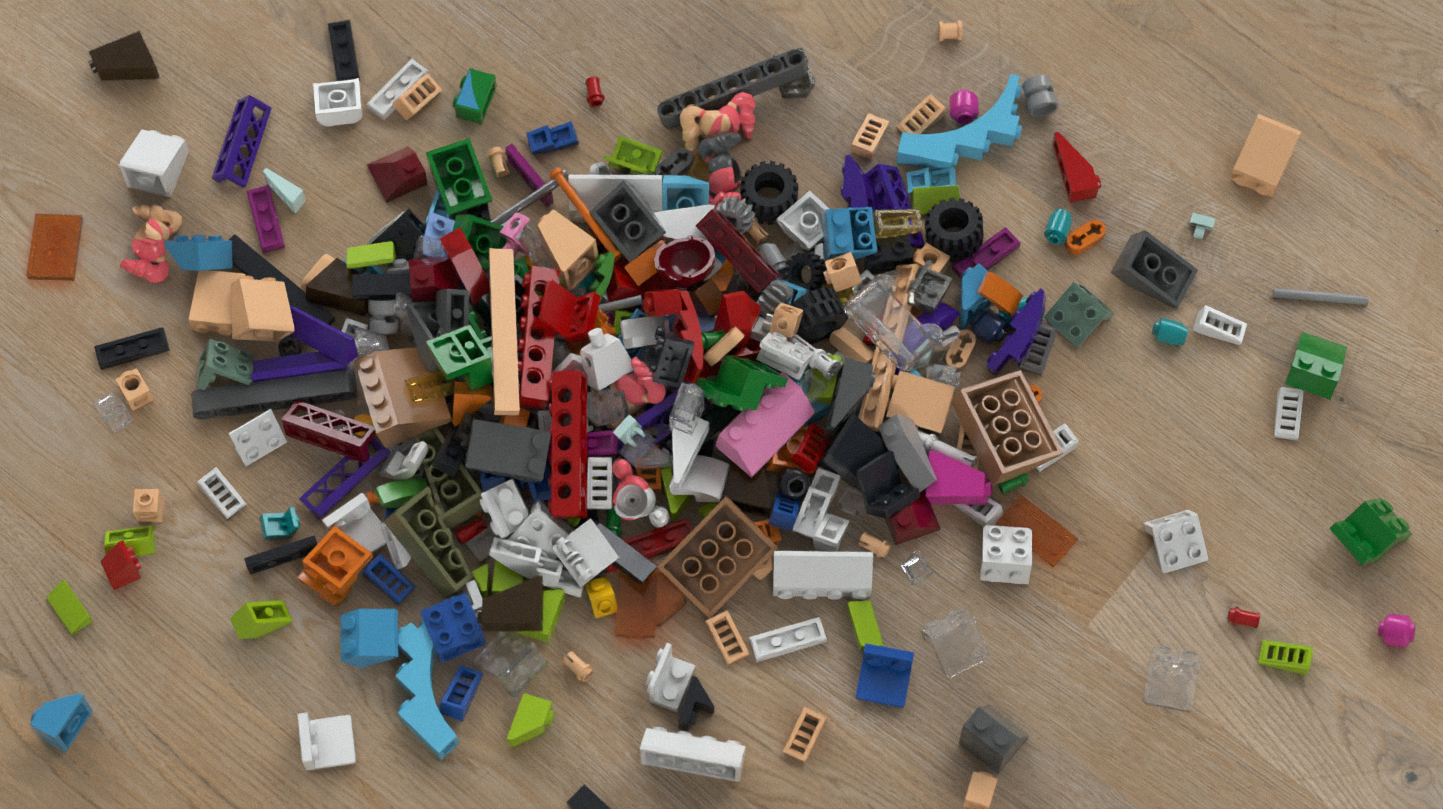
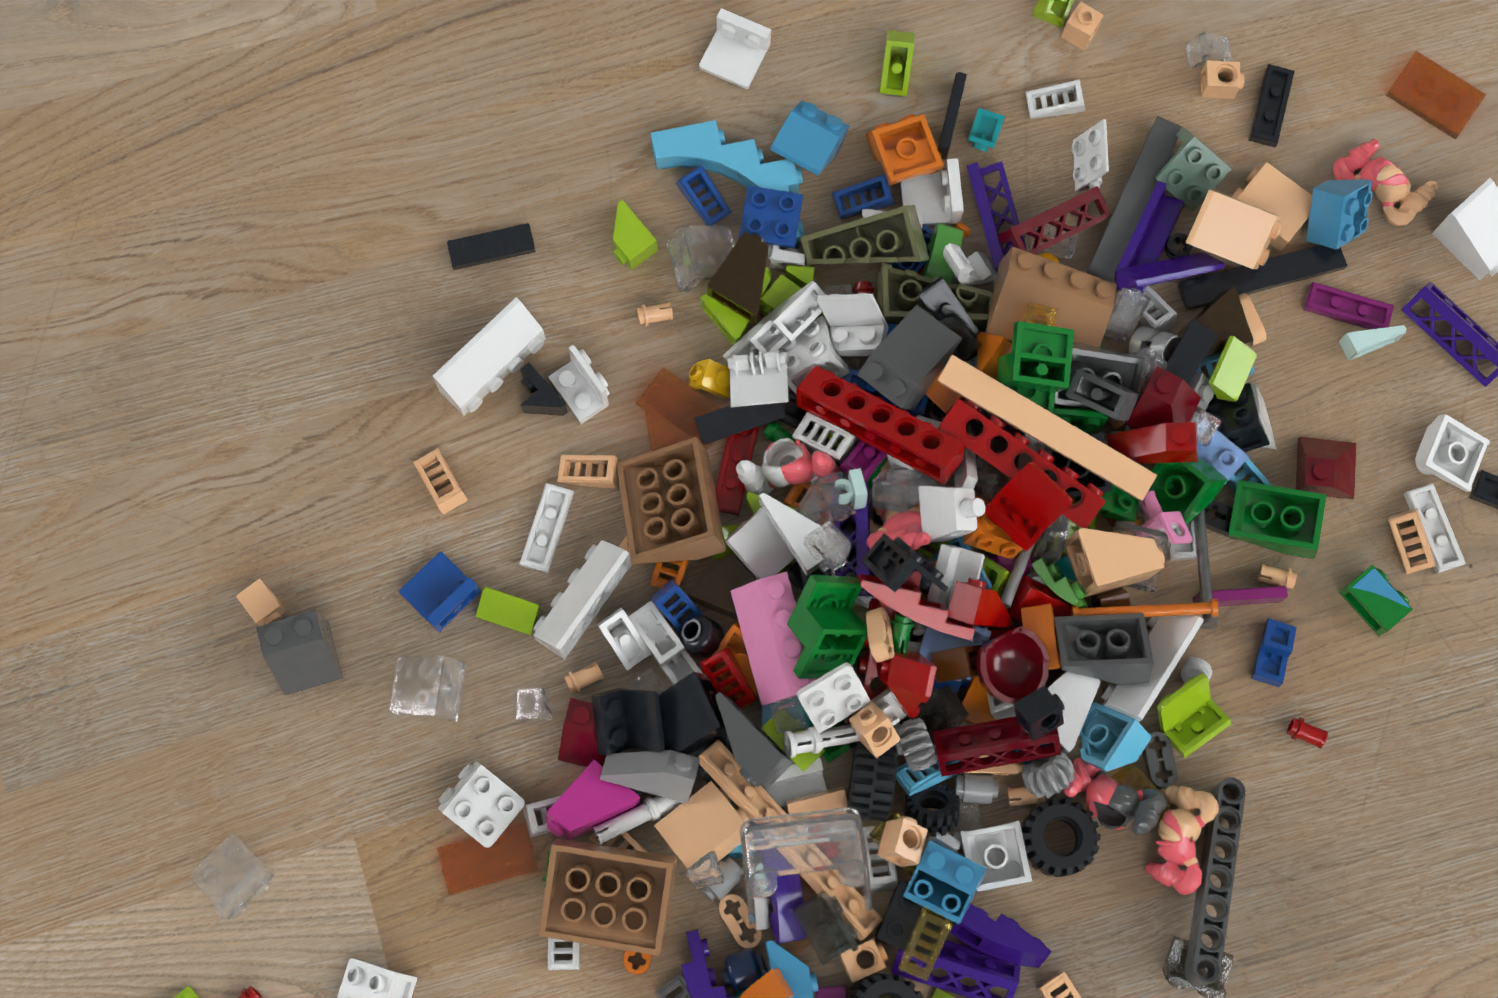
camera: 120 degrees right, 10 degrees up
(705, 226) = (1039, 713): none -> black brick

